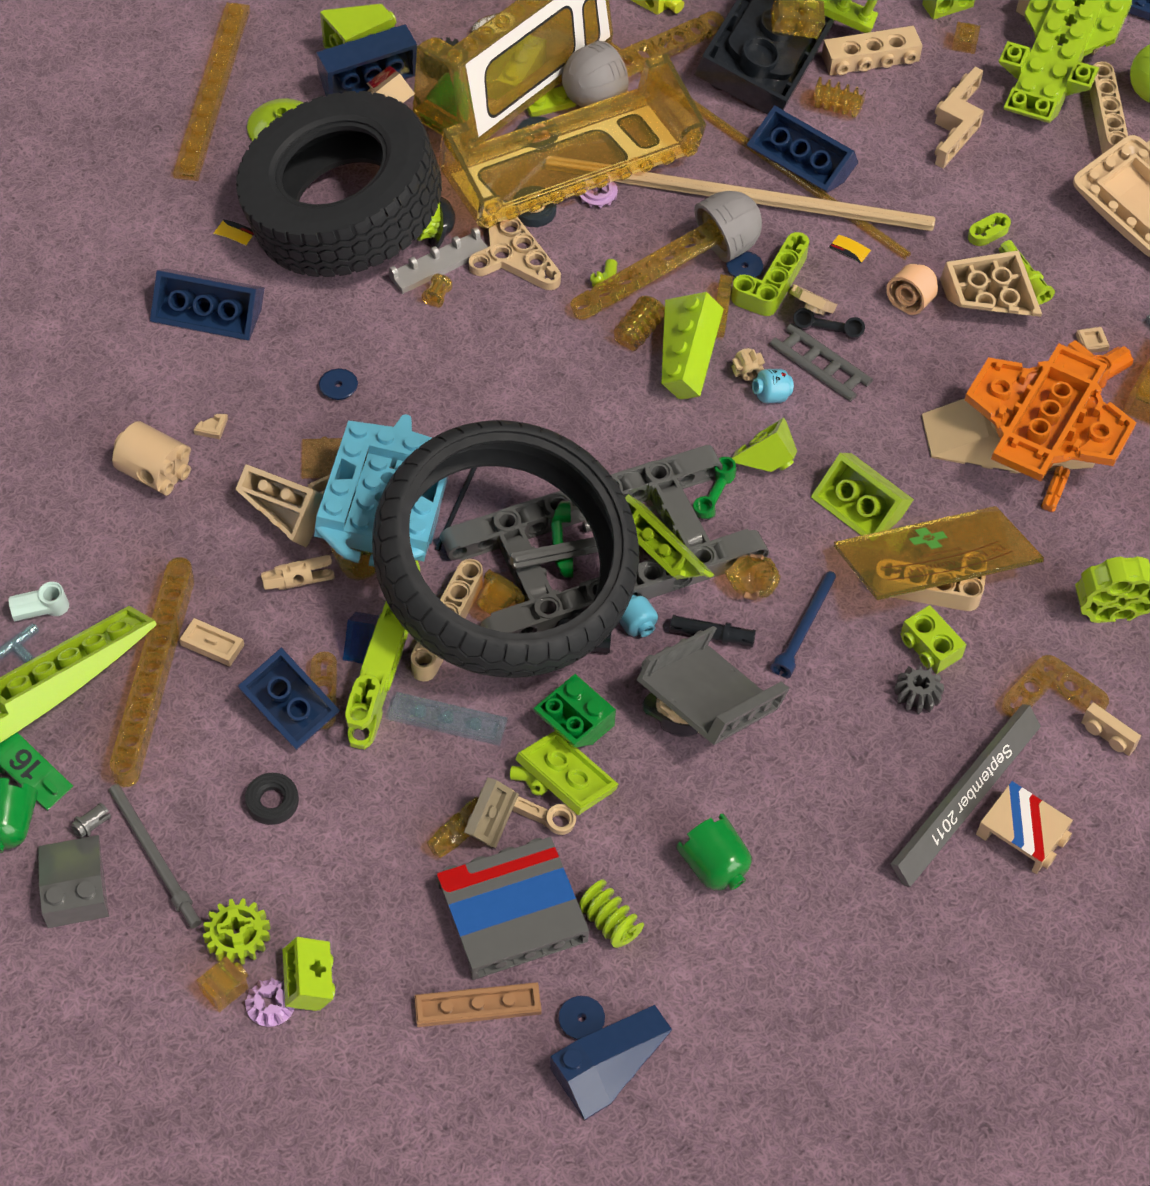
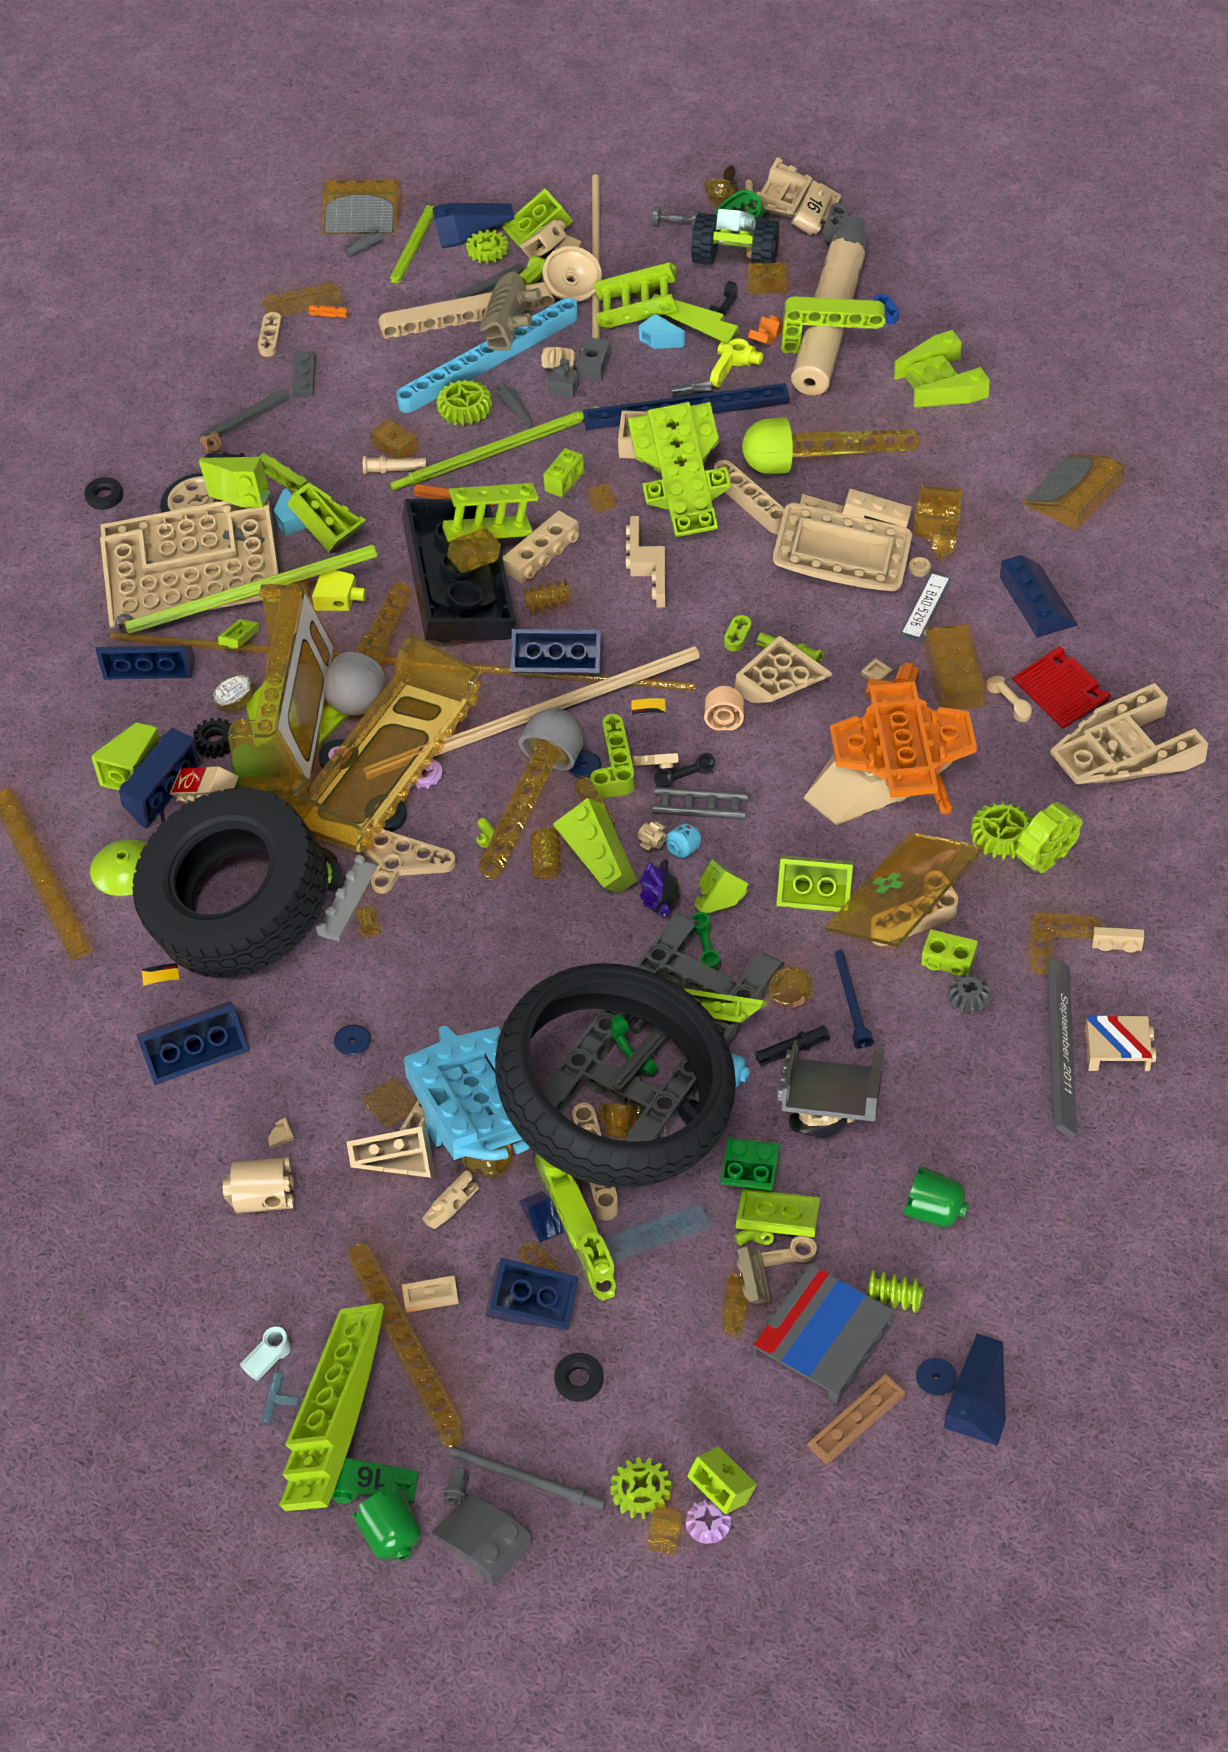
camera: 30 degrees left, 5 degrees down
(713, 416) = (659, 888): none -> hair
(1084, 548) = (999, 829): none -> lime gear

